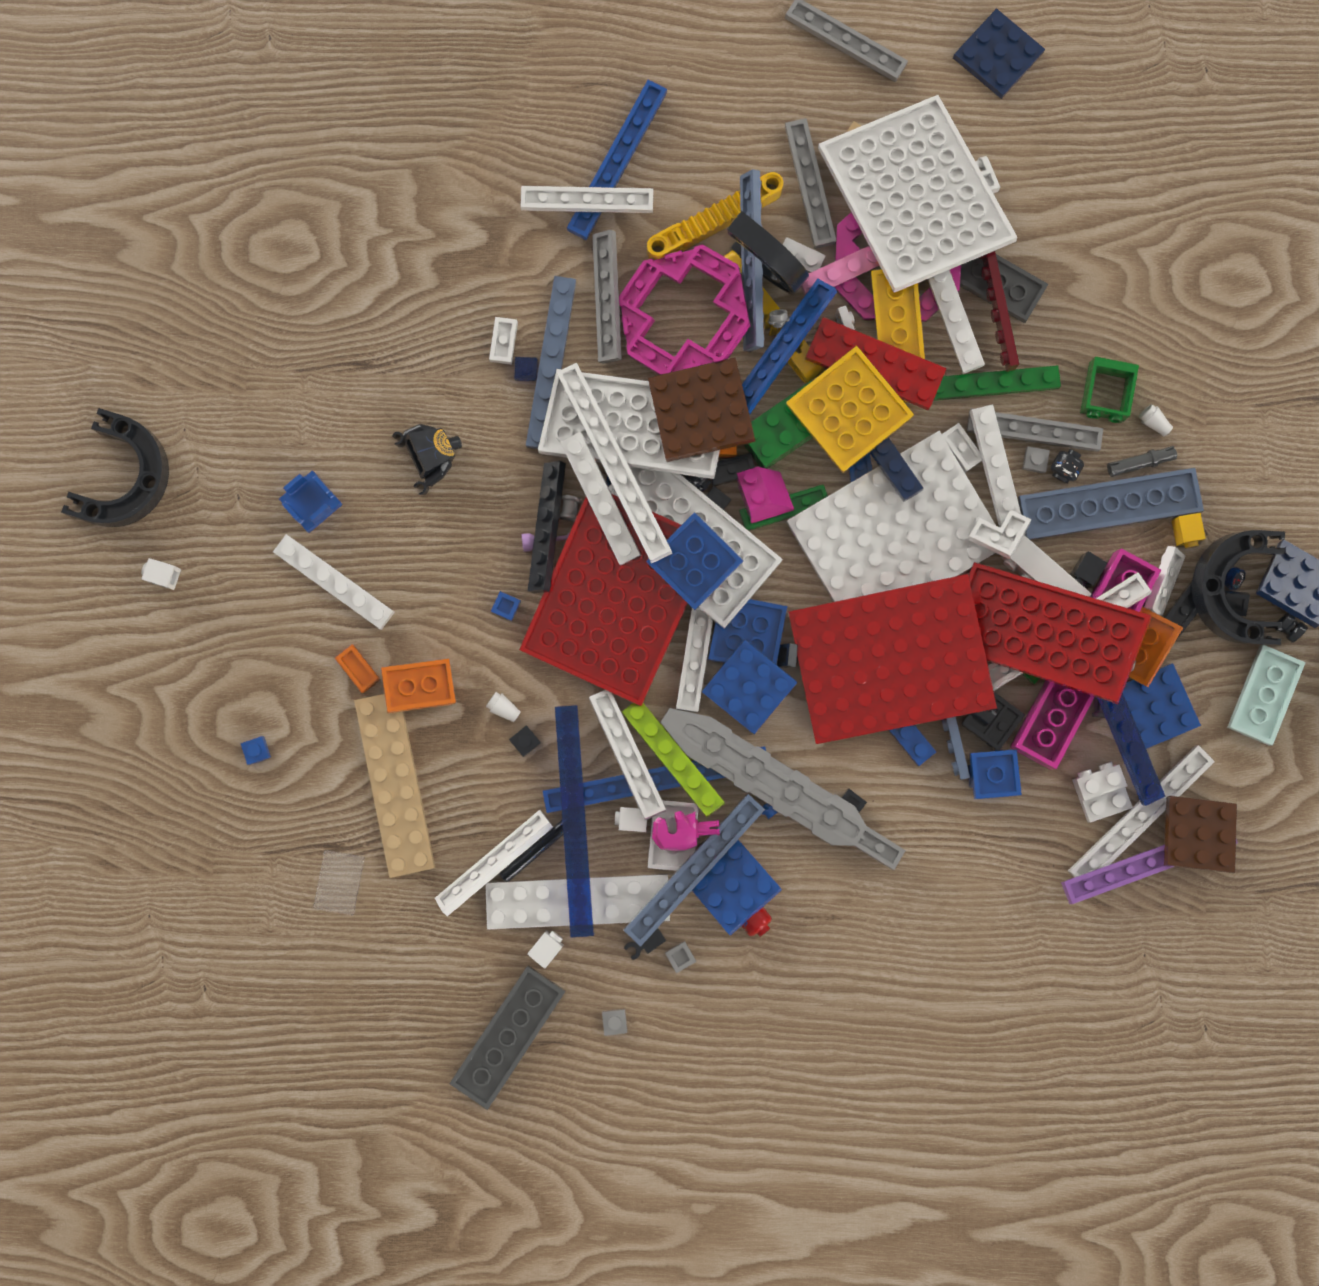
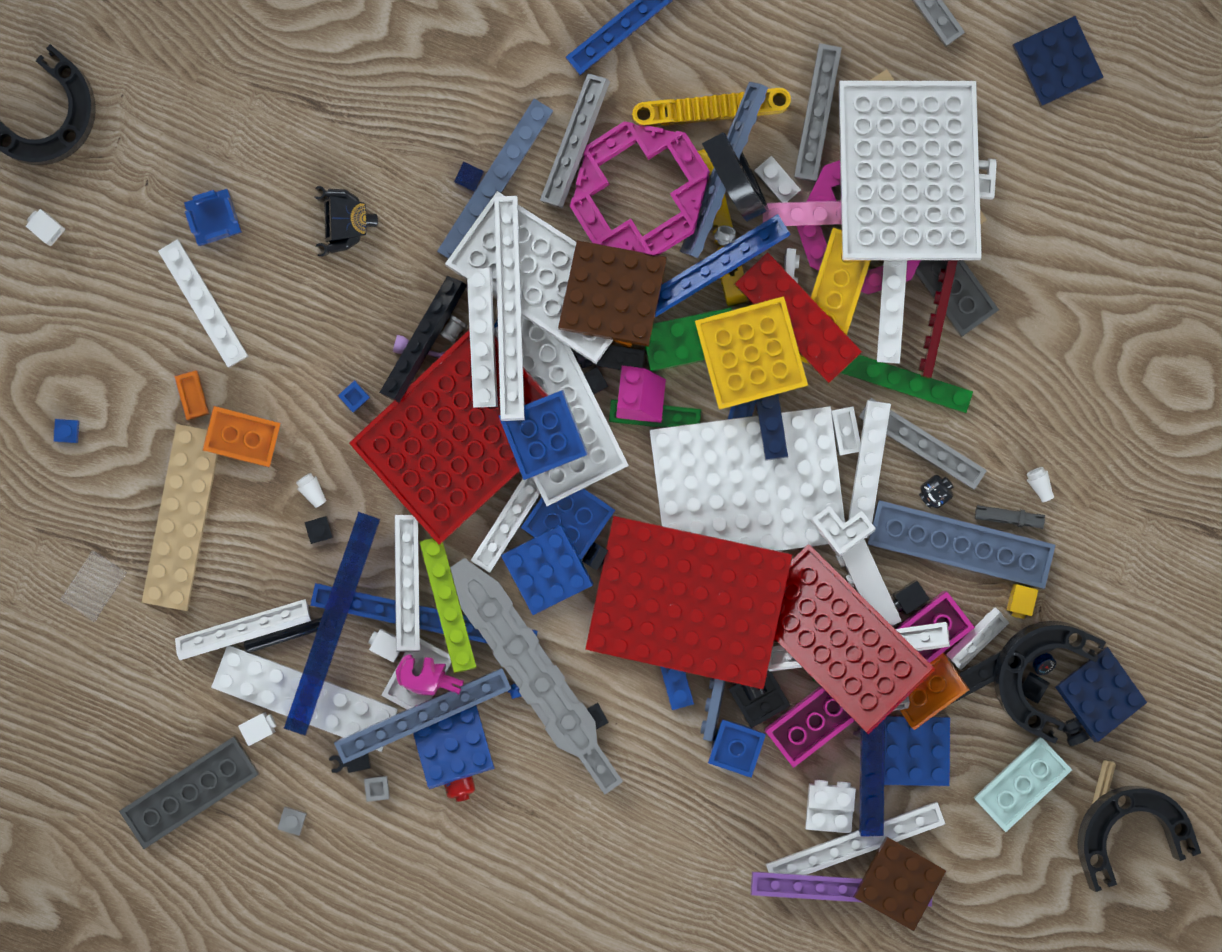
camera: 25 degrees right, 5 degrees up
(503, 340) = (458, 140): white plate -> none
(586, 199) = (595, 39): white plate -> none
(1035, 459) = (911, 472): light grey plate -> none
(1113, 368) = (1023, 417): green window -> none

